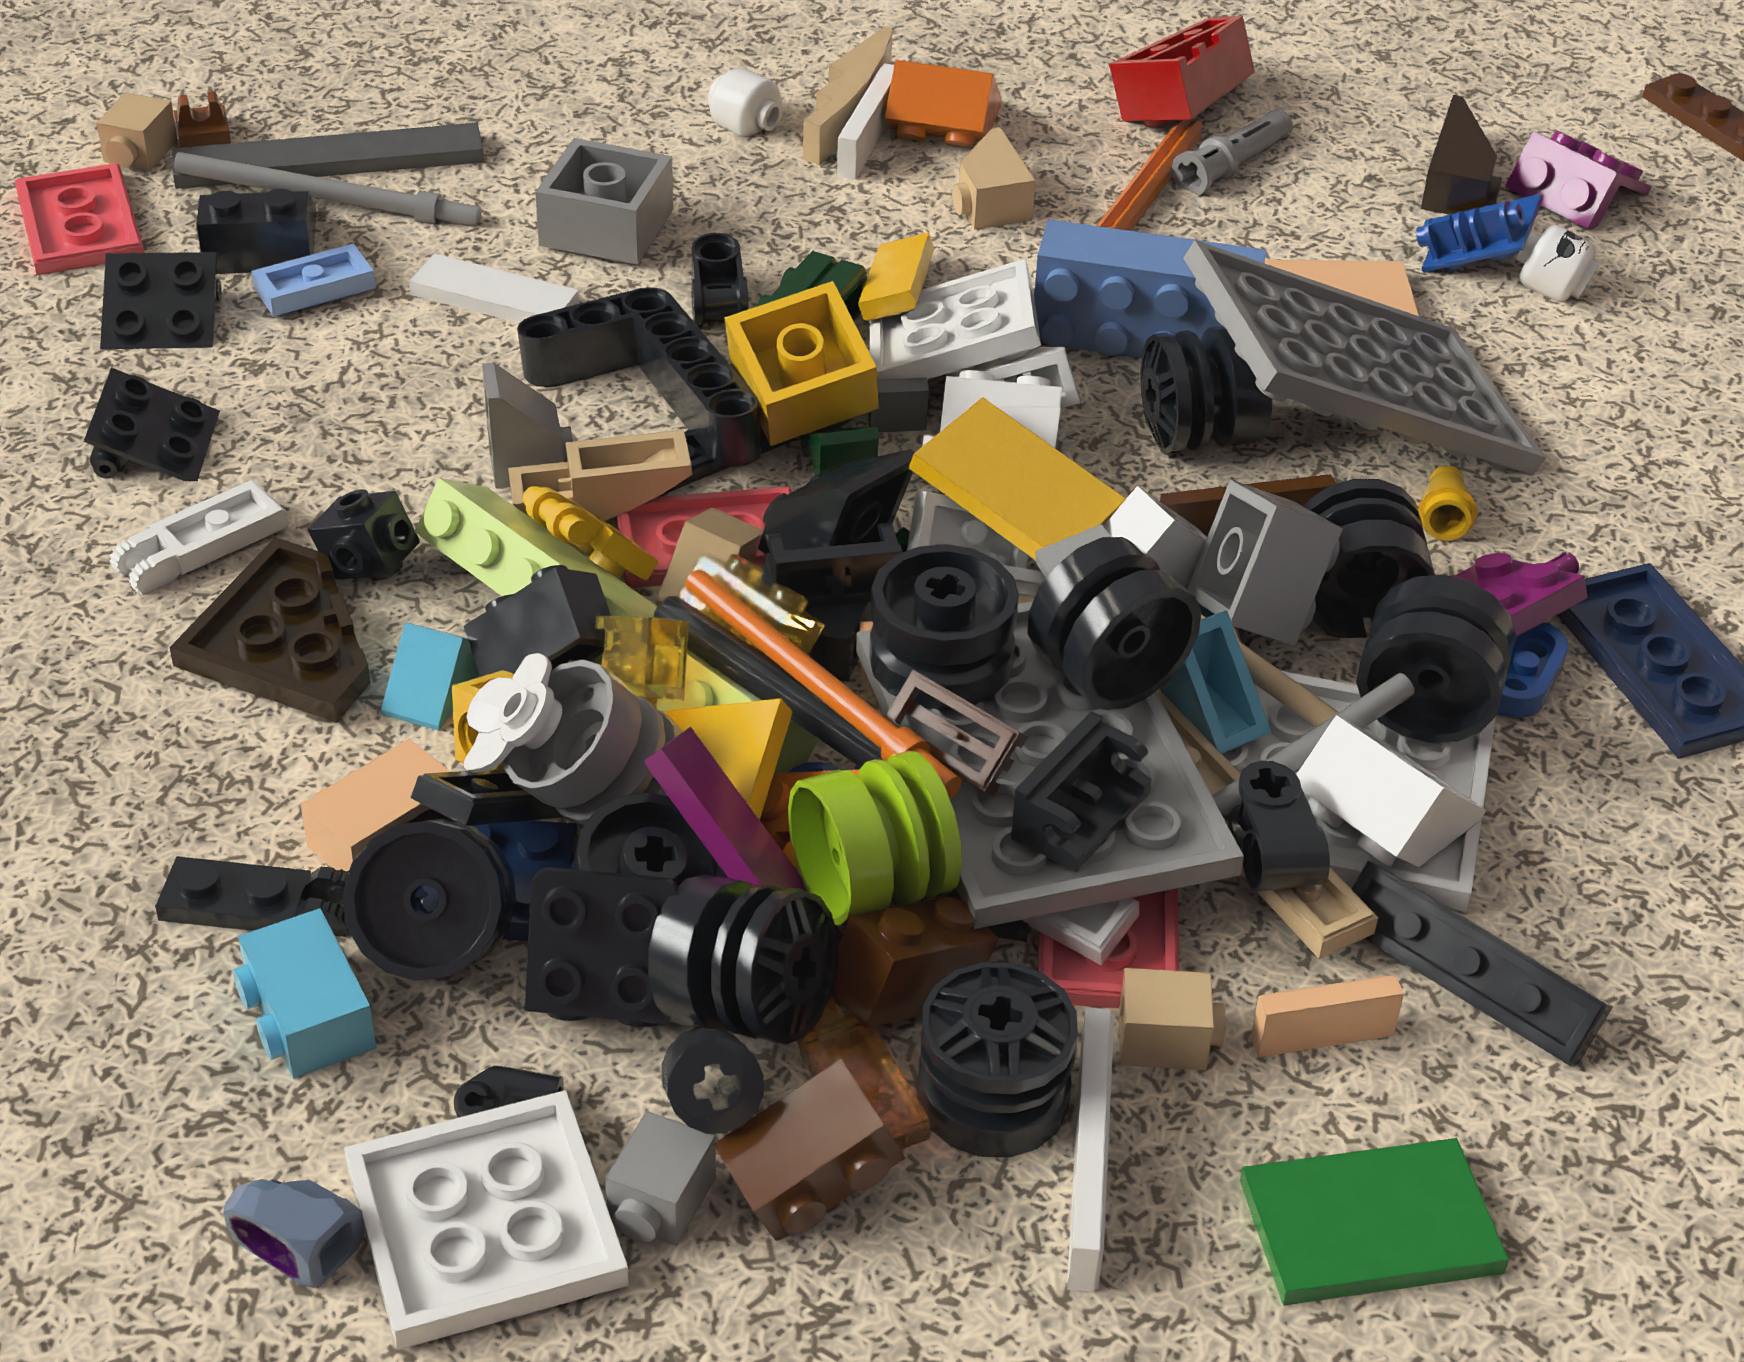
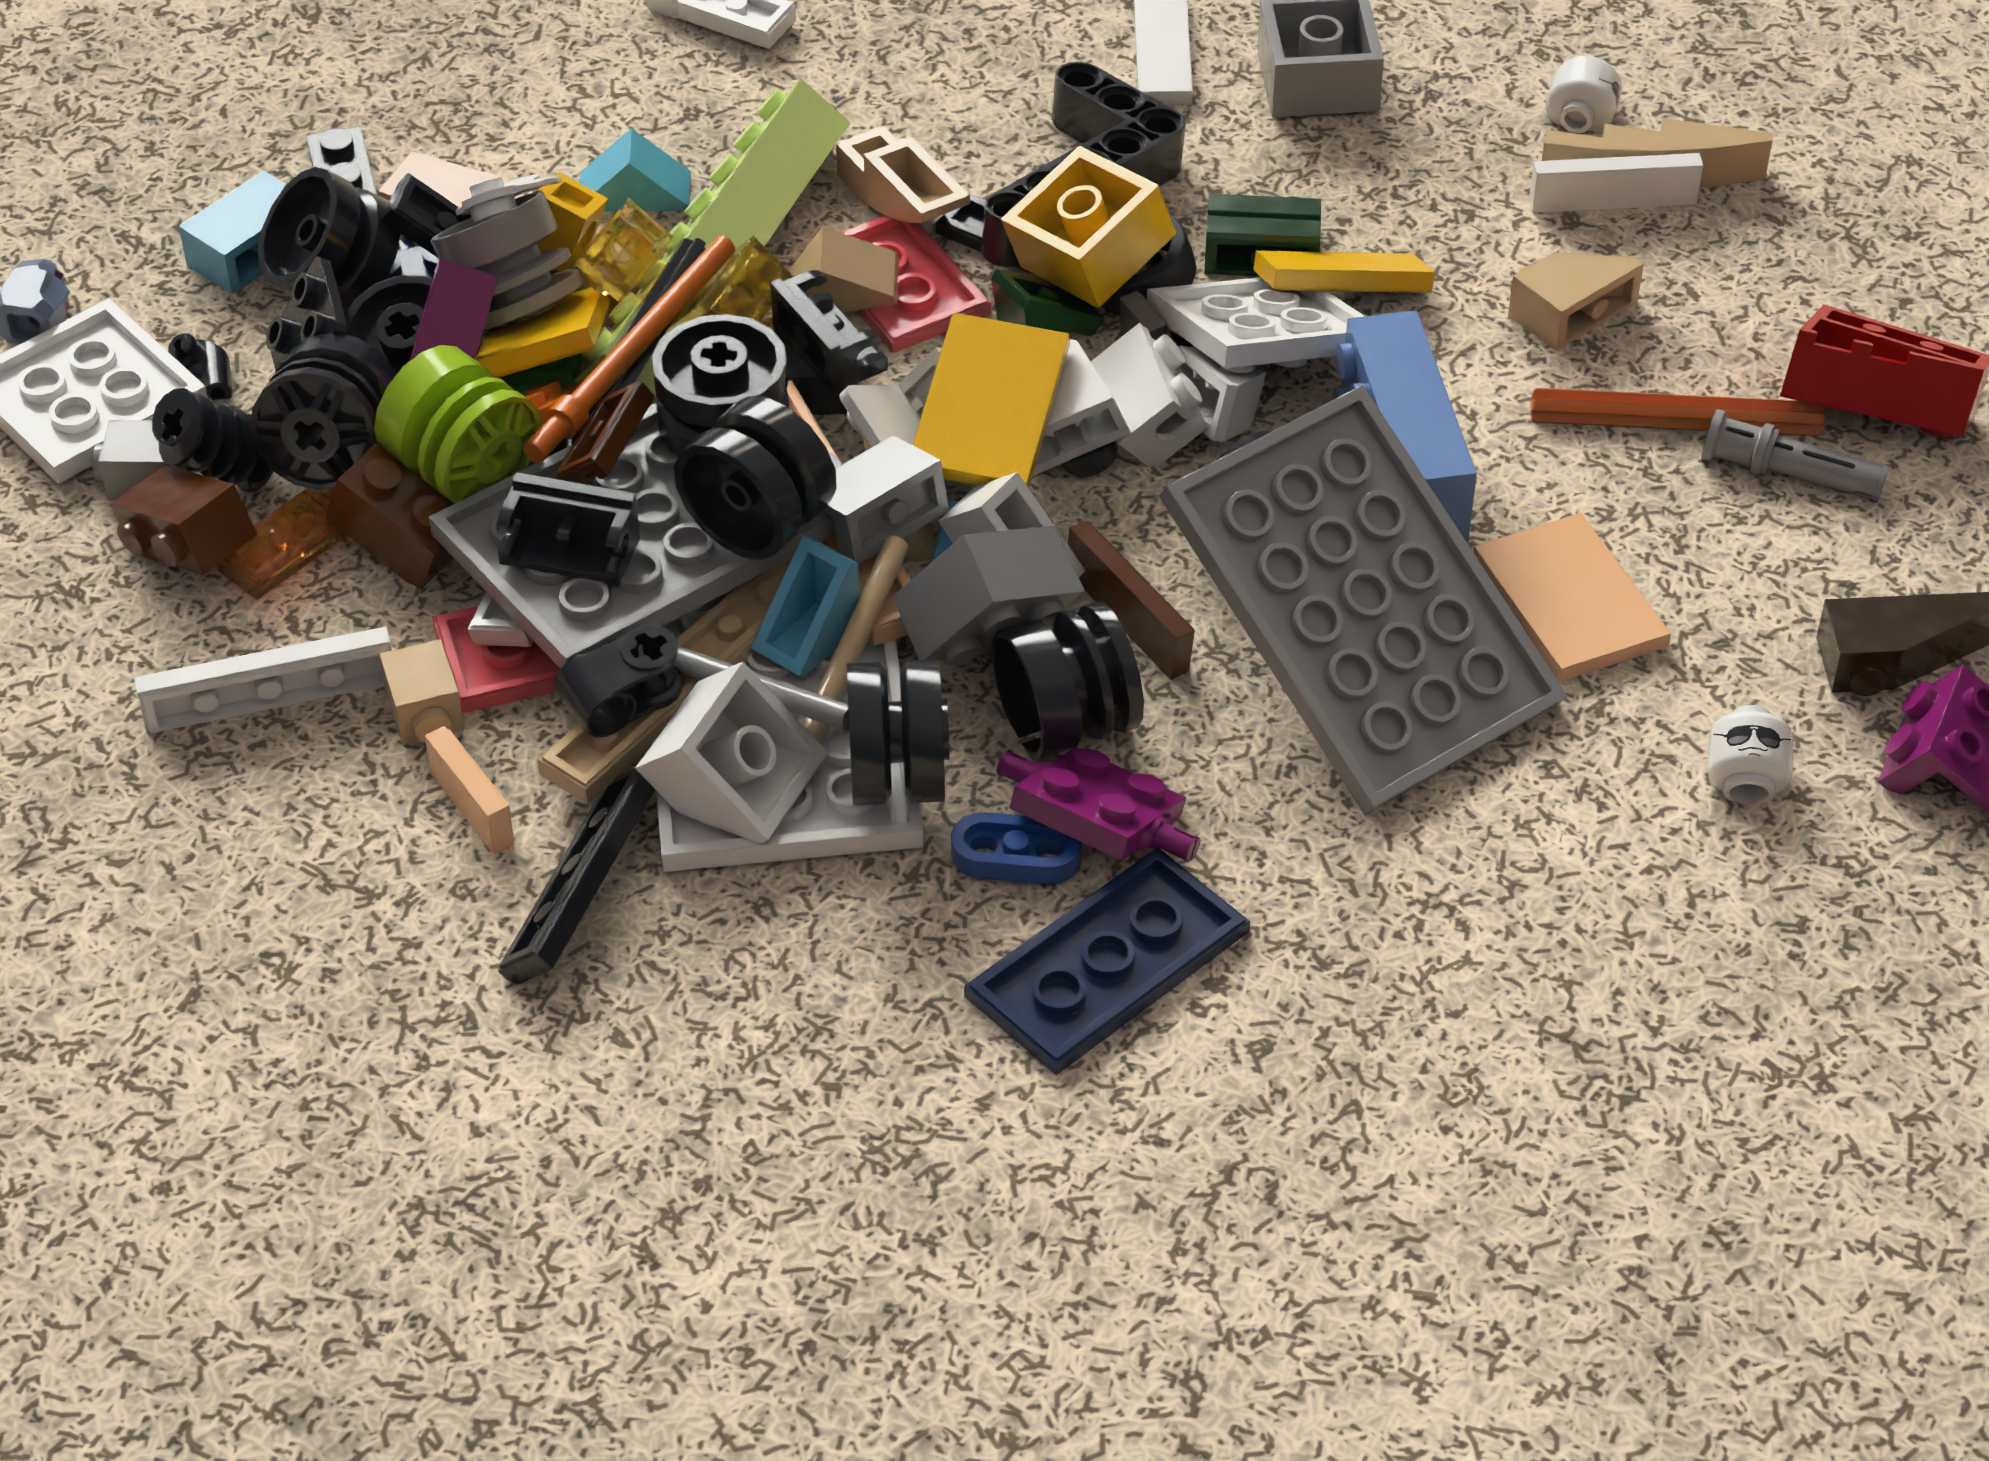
camera: 70 degrees right, 5 degrees up
(280, 635) = (633, 85): dark brown plate -> none
(365, 535) = (749, 63): black brick -> none
(520, 425) = (933, 106): light grey slope -> none
(545, 617) = (663, 189): black brick -> none
(587, 533) = (831, 200): yellow plate -> none
(717, 278) = (1261, 164): black piece -> none
(841, 504) = (911, 316): black slope -> none
(942, 103) = (1687, 223): orange slope -> none
(996, 1058) = (311, 580): black wheel -> none
(1372, 1221) = (272, 874): green tile -> none
(1447, 505) = (1248, 745): yellow cone -> none
(1478, 234) = (1737, 677): blue hinge -> none

